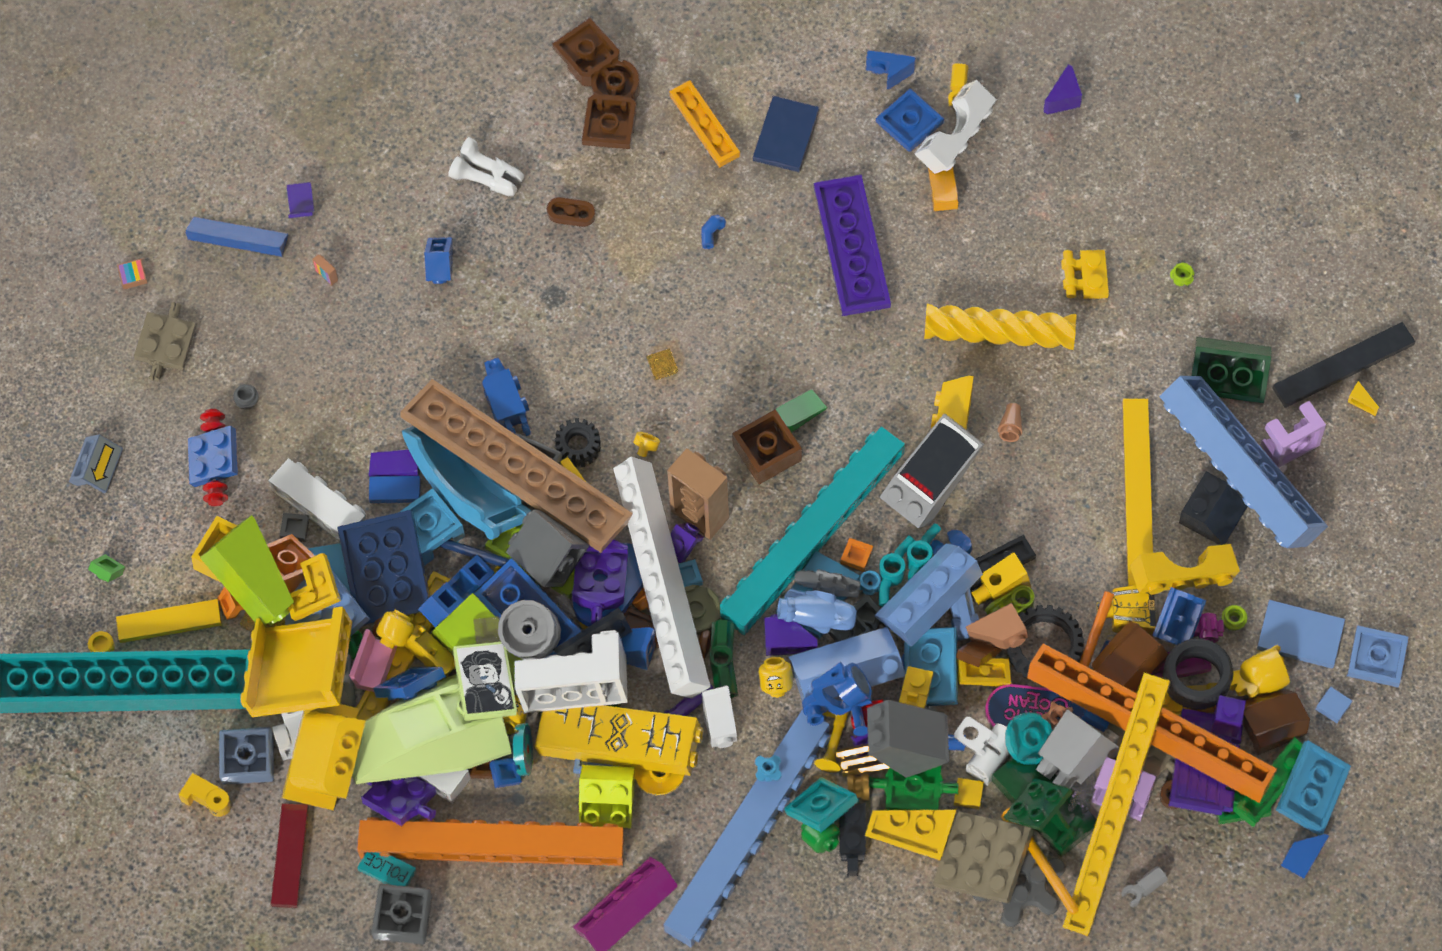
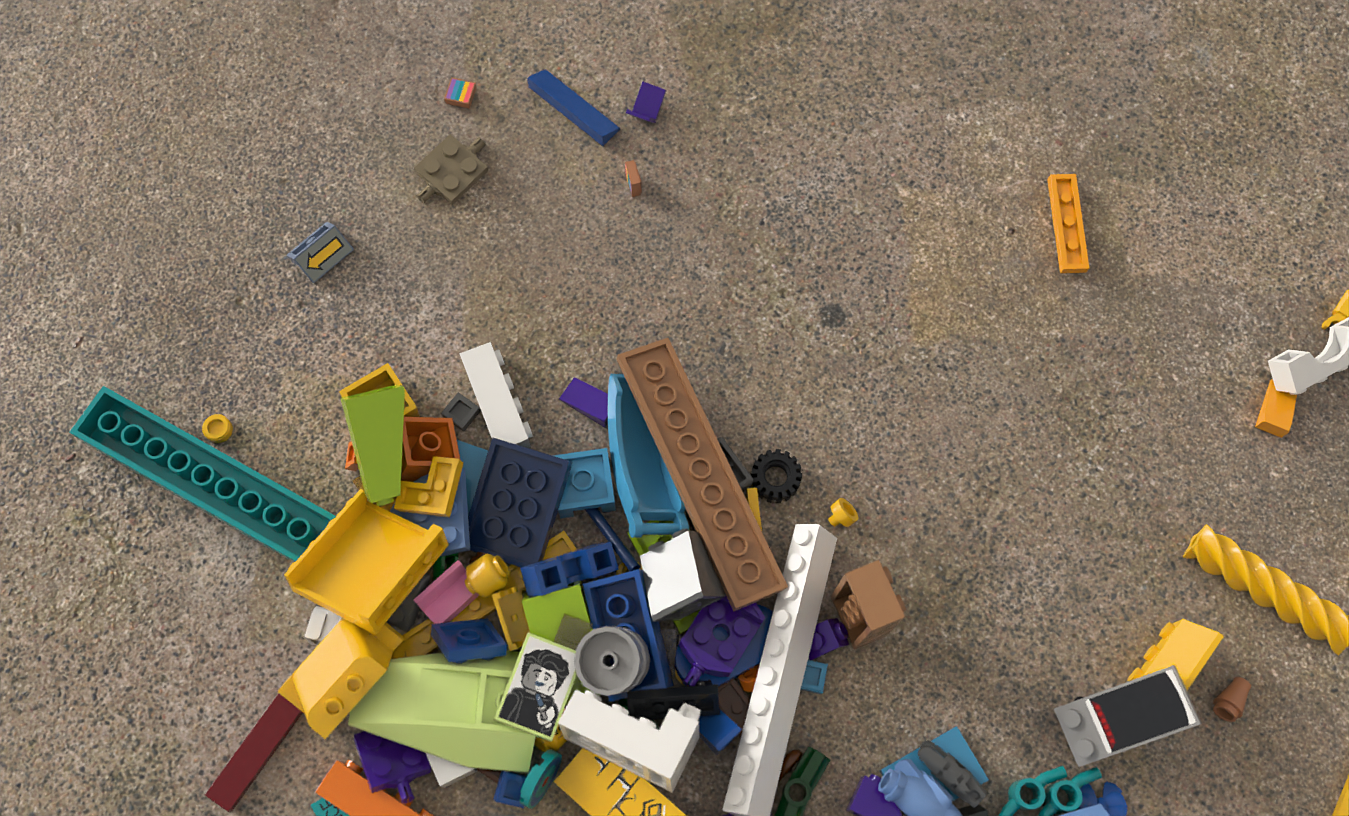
camera: 25 degrees right, 5 degrees up
(106, 568) = (265, 357): bright green plate -> none
(168, 621) = (291, 440): yellow tile -> none
(206, 794) = (216, 640): yellow leg -> none
(213, 457) = (425, 302): plate -> none
(232, 749) = (275, 604): sand blue brick -> none
(245, 396) = (491, 260): dark grey plate -> none
(394, 489) = (575, 426): blue tile -> none
(438, 259) = (742, 223): blue slope -> none
(470, 155) = (828, 140): white piece -> none
(503, 397) = (728, 392): blue hinge -> none
(571, 211) = (894, 242): reddish brown plate -> none
(597, 64) = (993, 113): reddish brown plate -> none
(662, 364) = (901, 440): clear yellow tile -> none
(703, 606) = (809, 721): olive tile -> none
(712, 224) = (1025, 325): blue arm -> none
(767, 447) = (963, 586): reddish brown brick -> none
(786, 134) = (1143, 273): dark blue tile -> none
(801, 410) = (1013, 563): slope -> none
(812, 530) = (964, 702): teal brick -> none
(852, 245) = (1155, 420): dark purple plate -> none
(856, 554) = (997, 755): orange plate -> none
(870, 576) = (1003, 793): dark azure plate -> none
(895, 65) = (1288, 261): blue slope -> none
(909, 120) = (1276, 323): blue plate -> none

